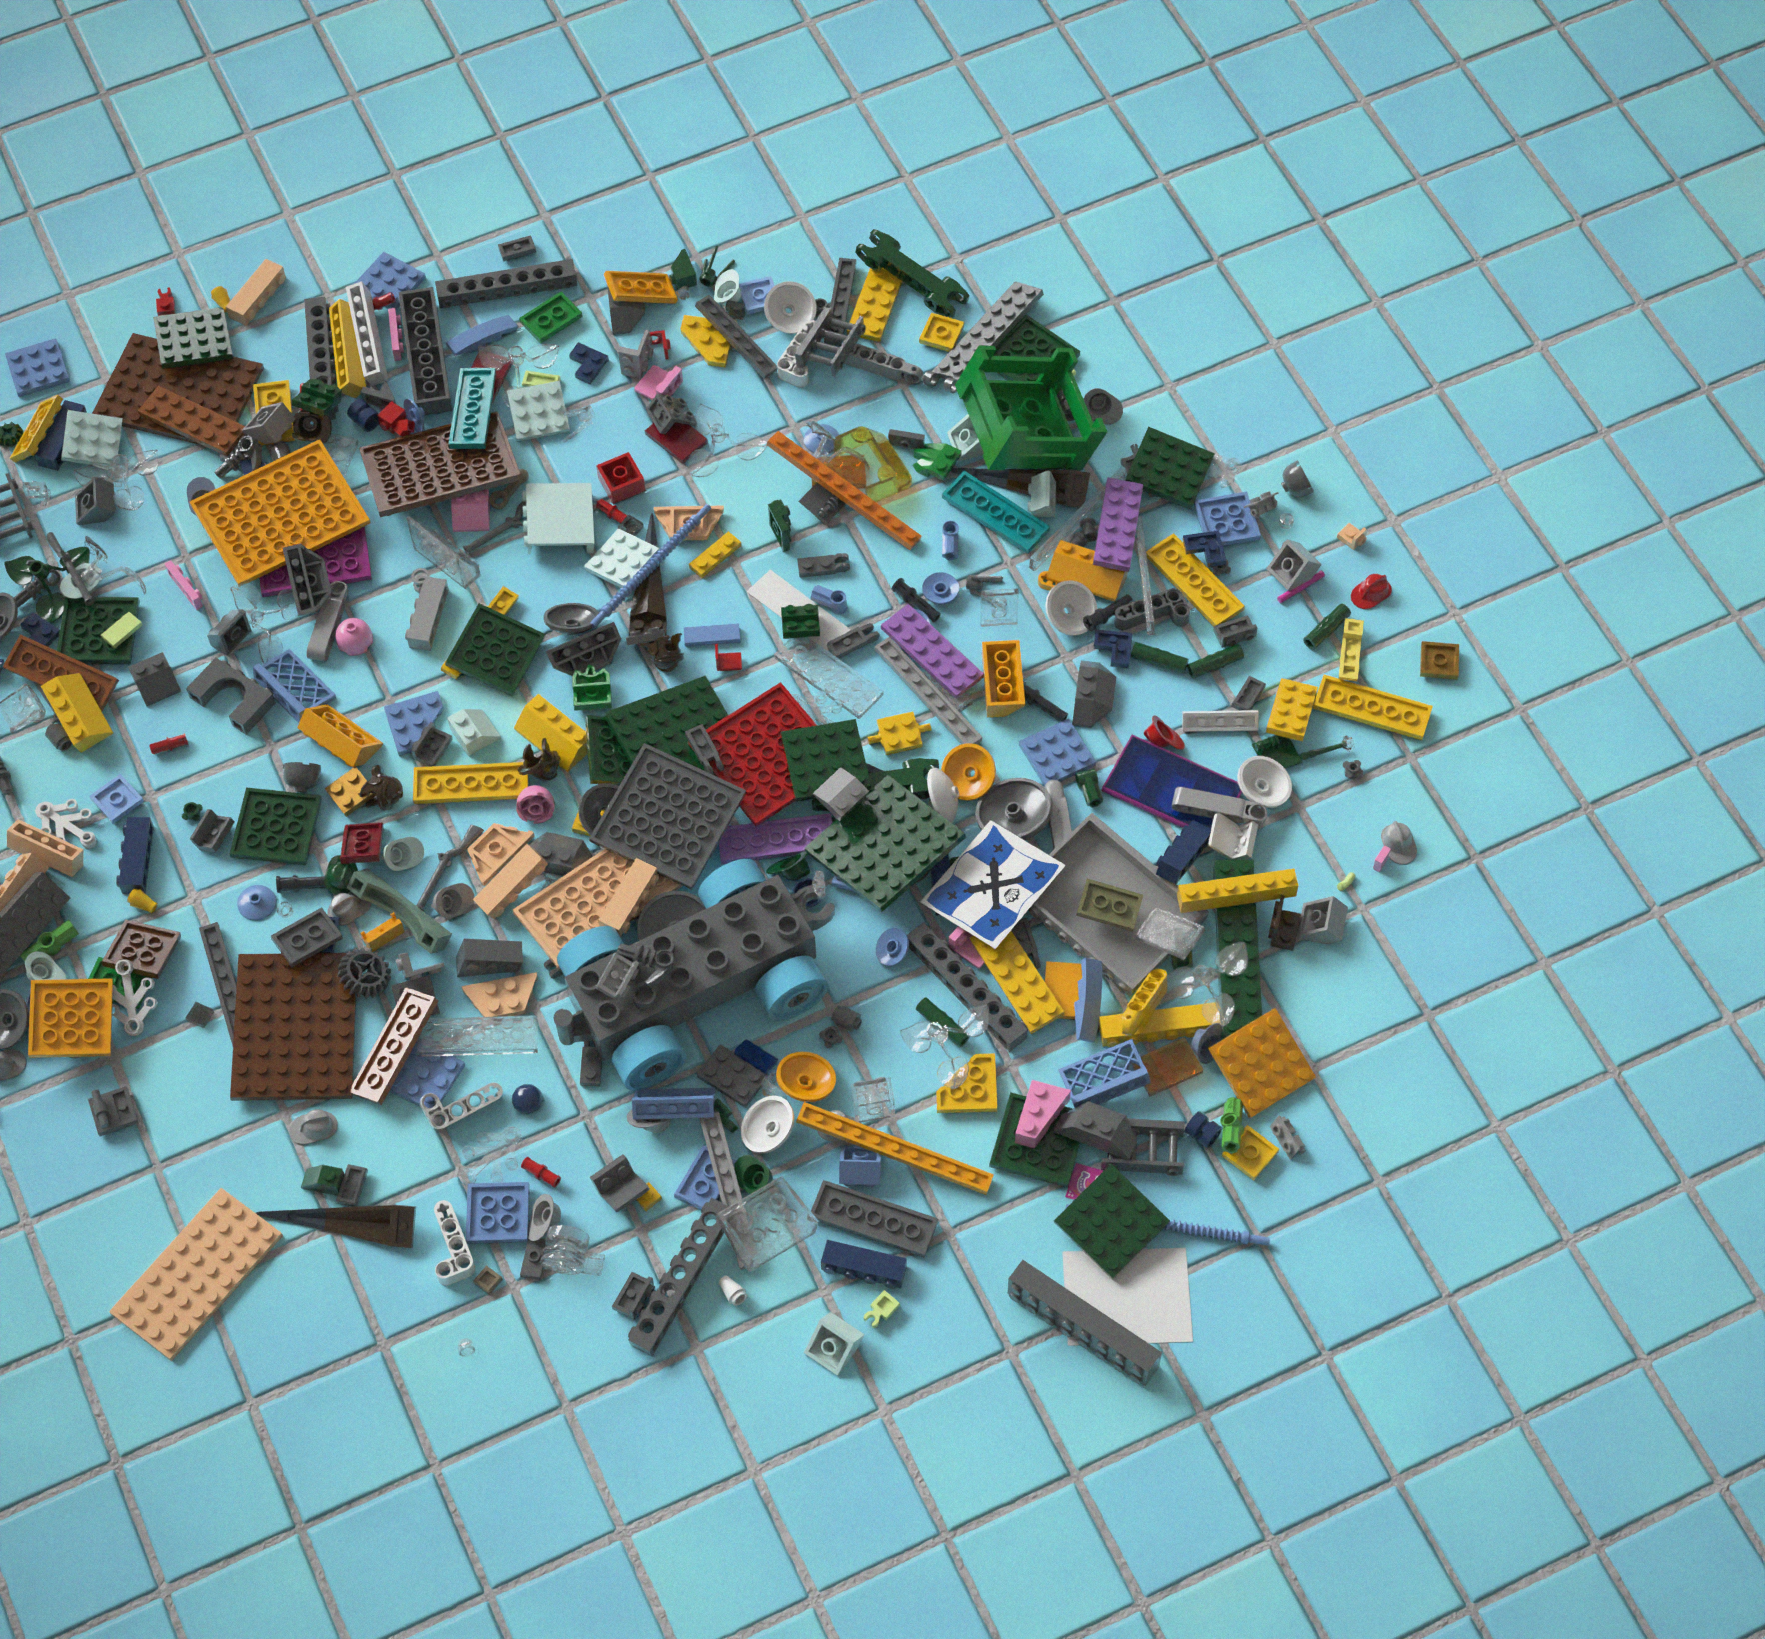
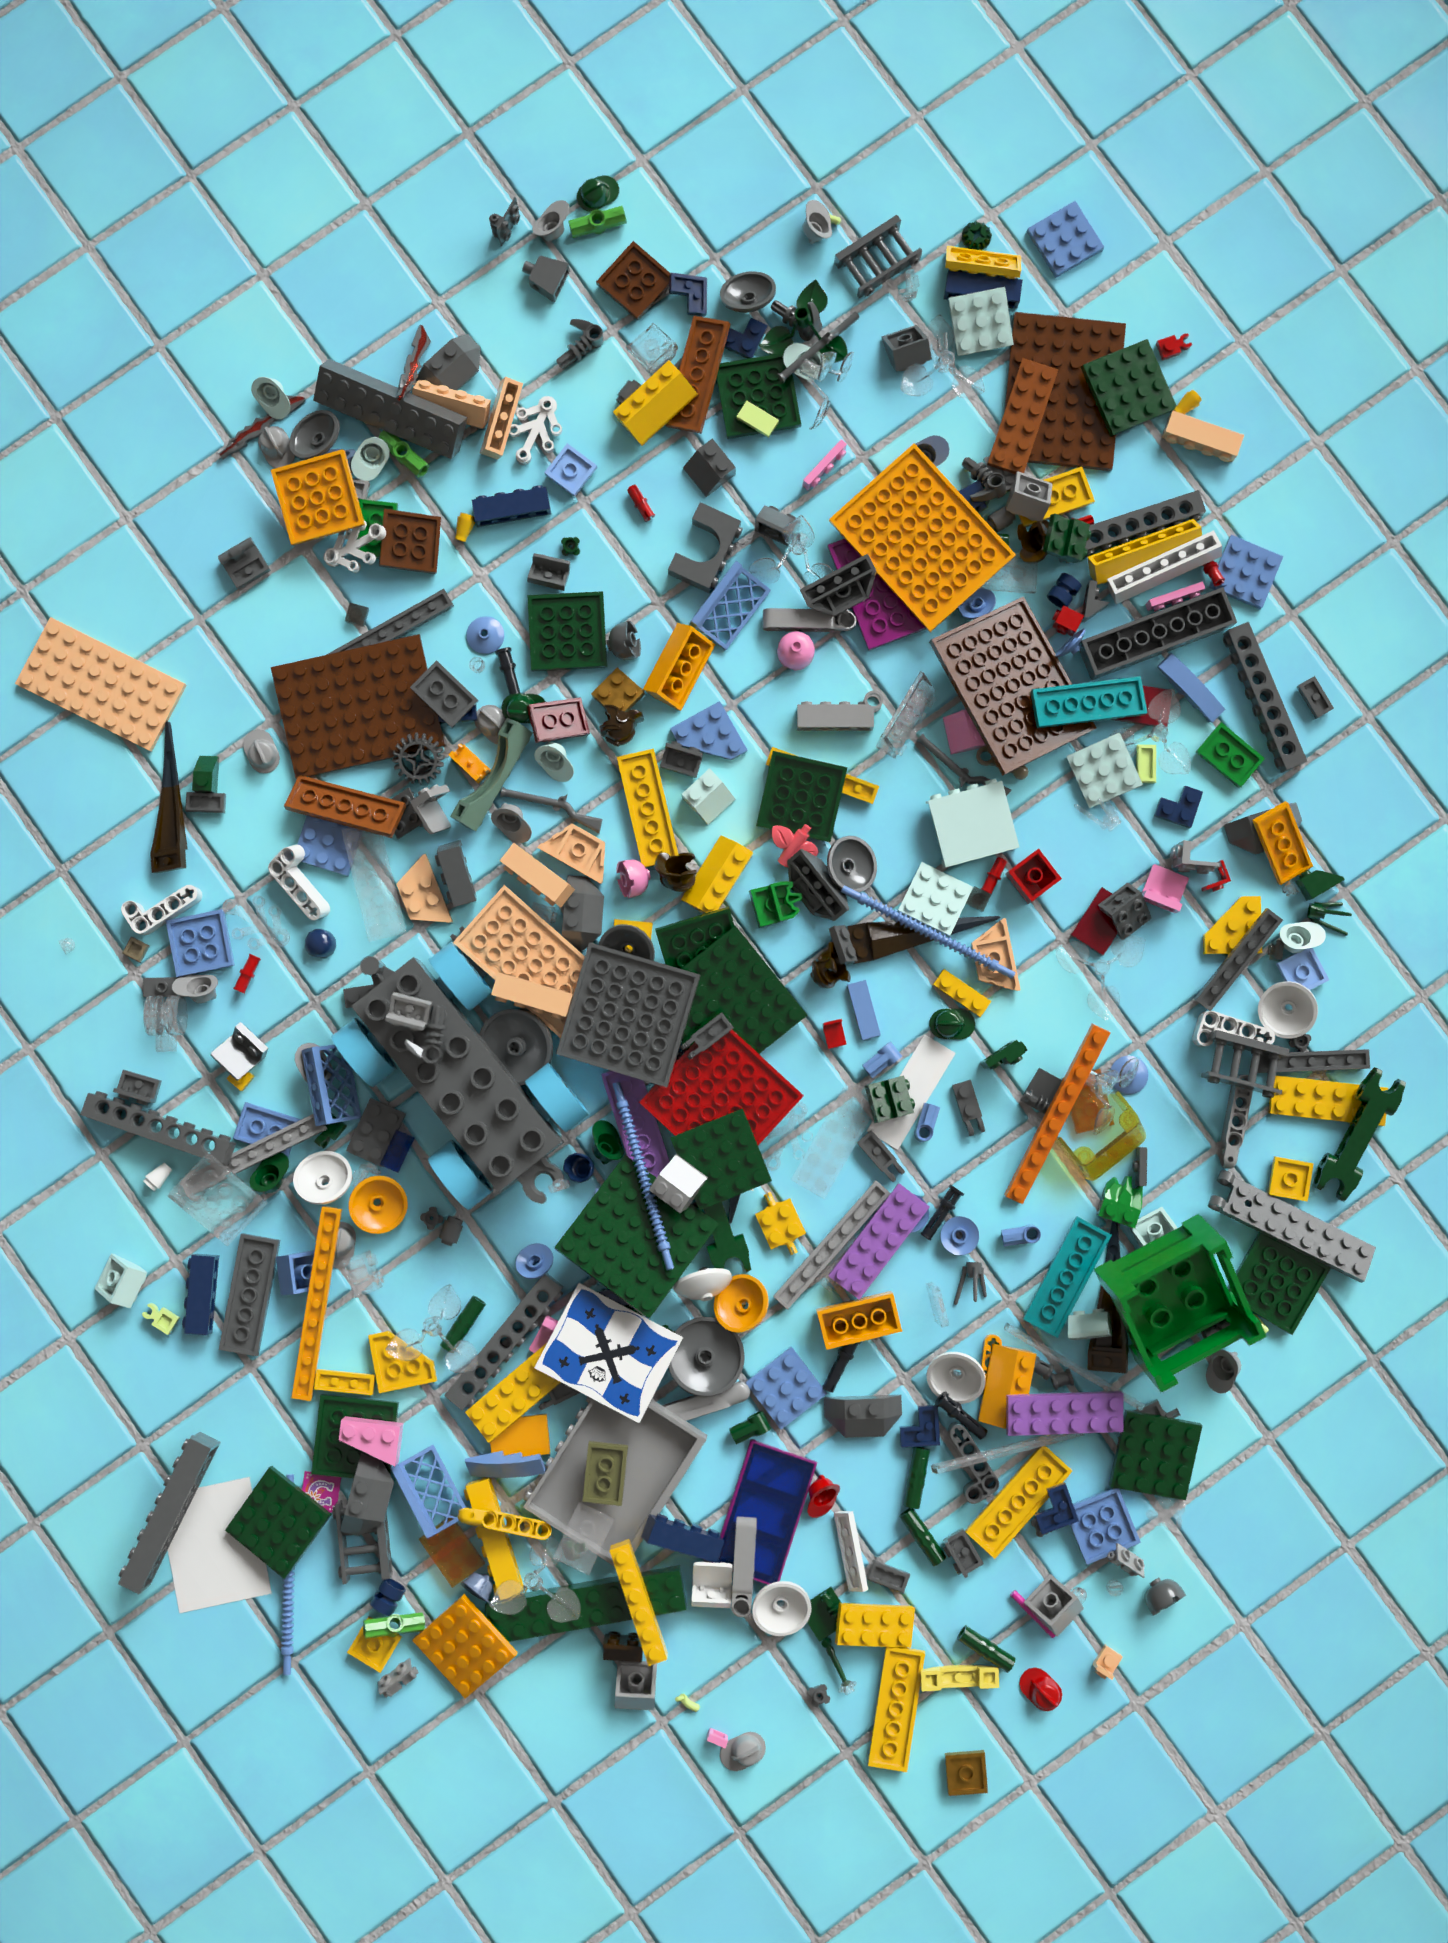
camera: 75 degrees right, 25 degrees up
(357, 480) = (978, 604): none -> medium blue dish
(404, 427) = (1056, 637): red piece -> none
(537, 665) = (792, 843): none -> coral plant
(742, 568) = (952, 1023): none -> dark green piece
(761, 623) = (885, 1057): none -> medium blue piece
(897, 814) = (663, 1246): none -> medium blue hose
(980, 1139) = (344, 1382): none -> yellow plate

